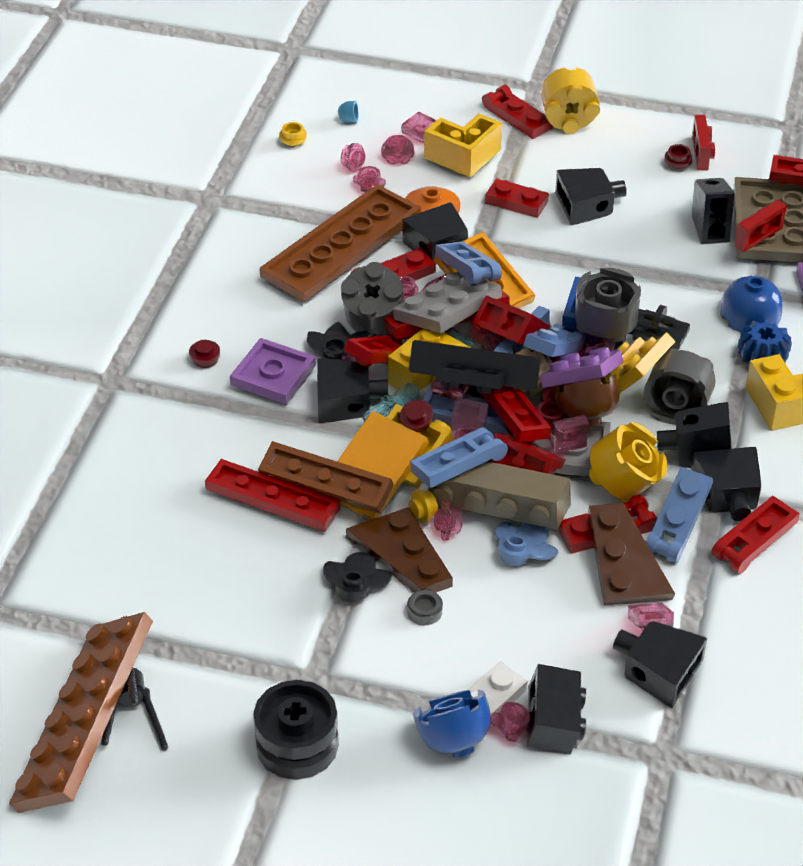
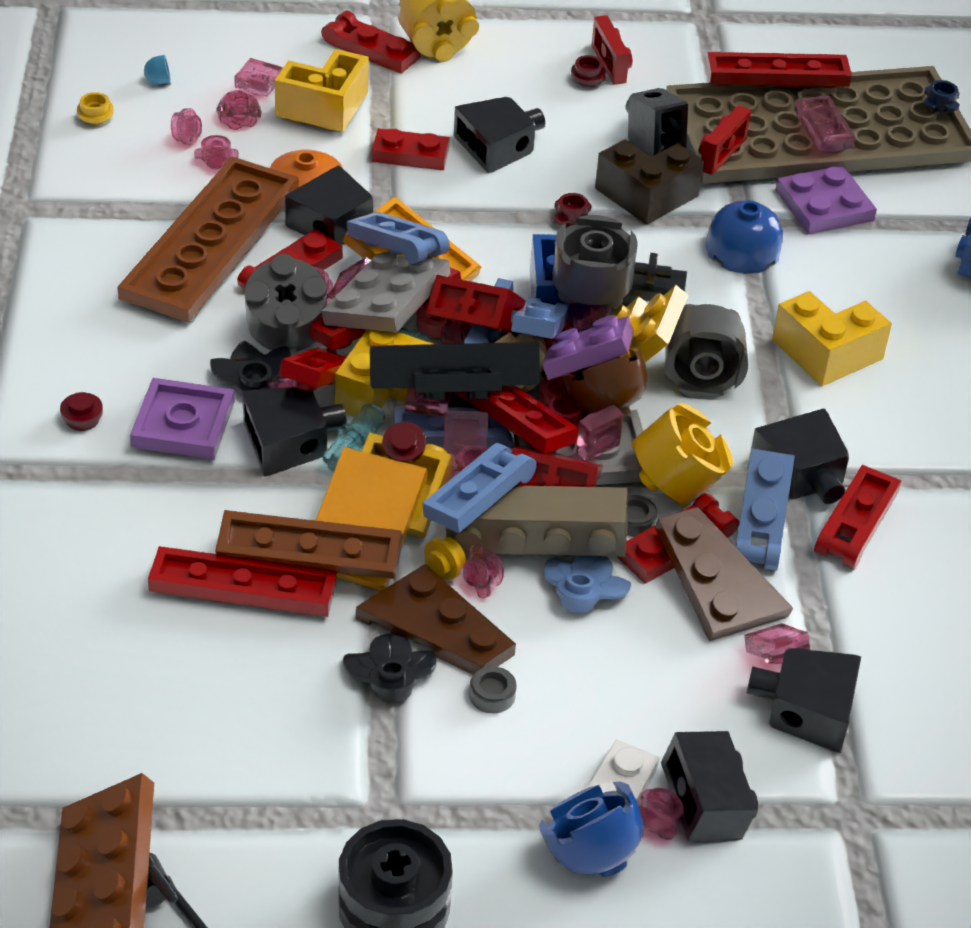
camera: 20 degrees left, 0 degrees up
(581, 499) = (641, 514): none -> dark grey tile
(624, 260) = (571, 207): none -> dark red plate
(690, 252) = (648, 184): none -> dark brown brick
(697, 431) = (752, 401): black torso -> none
(764, 340) = (777, 280): blue gear -> none

